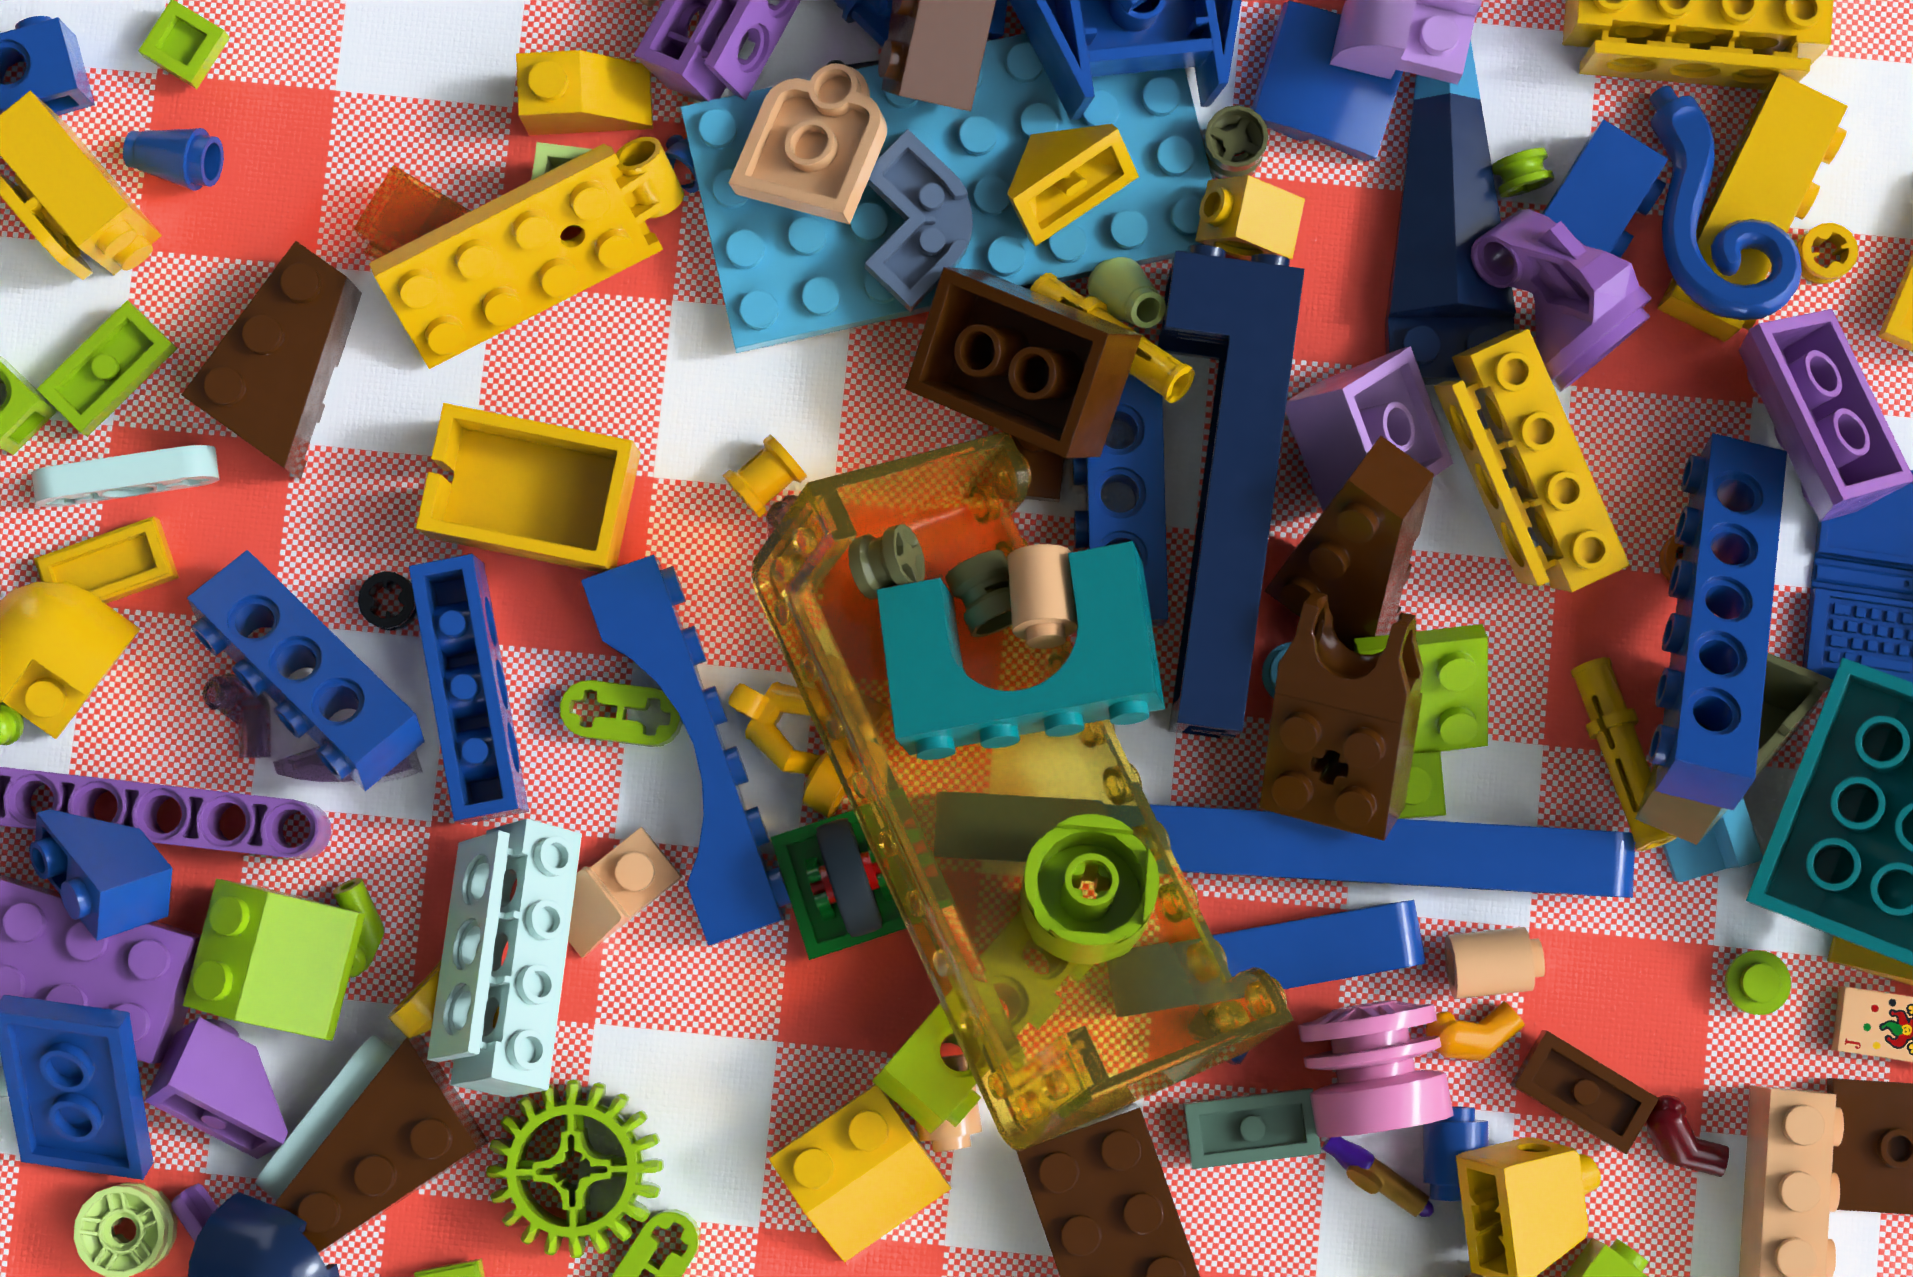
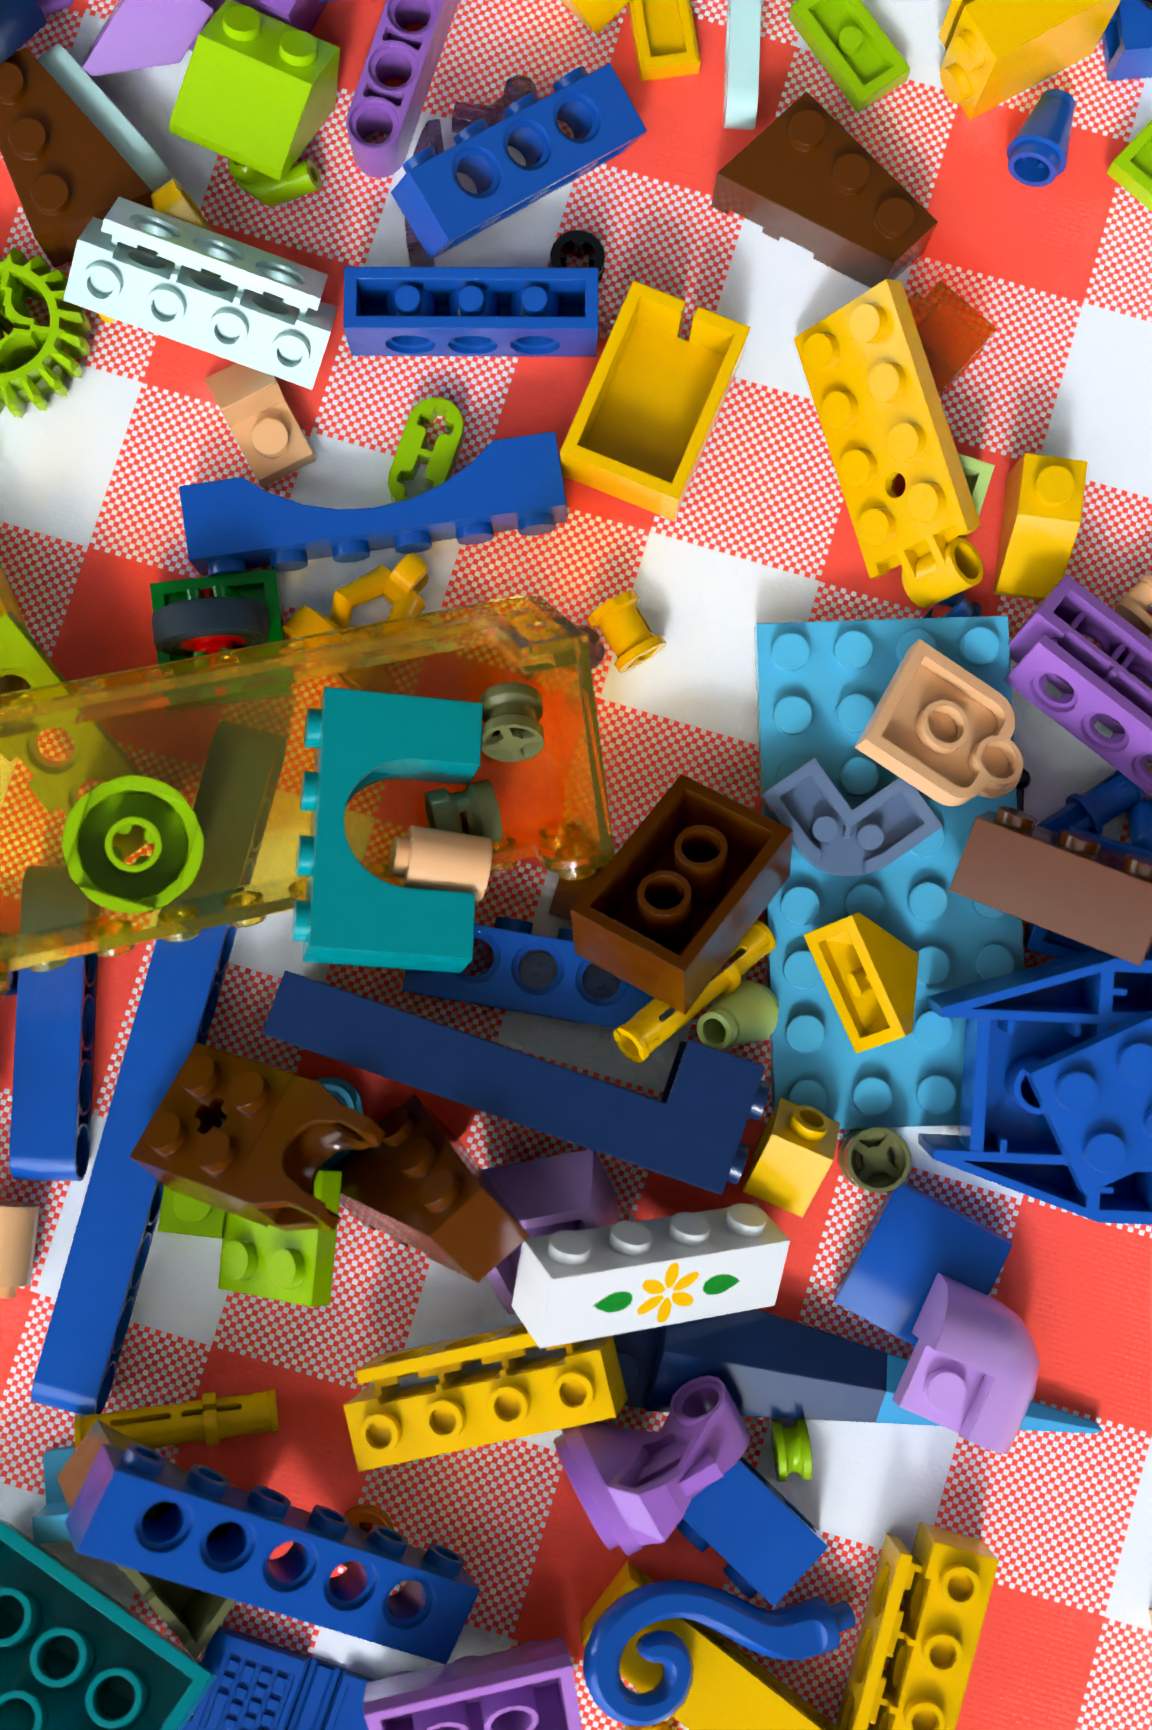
camera: 95 degrees right, 0 degrees up
(1389, 326) = (648, 1273): none -> white brick

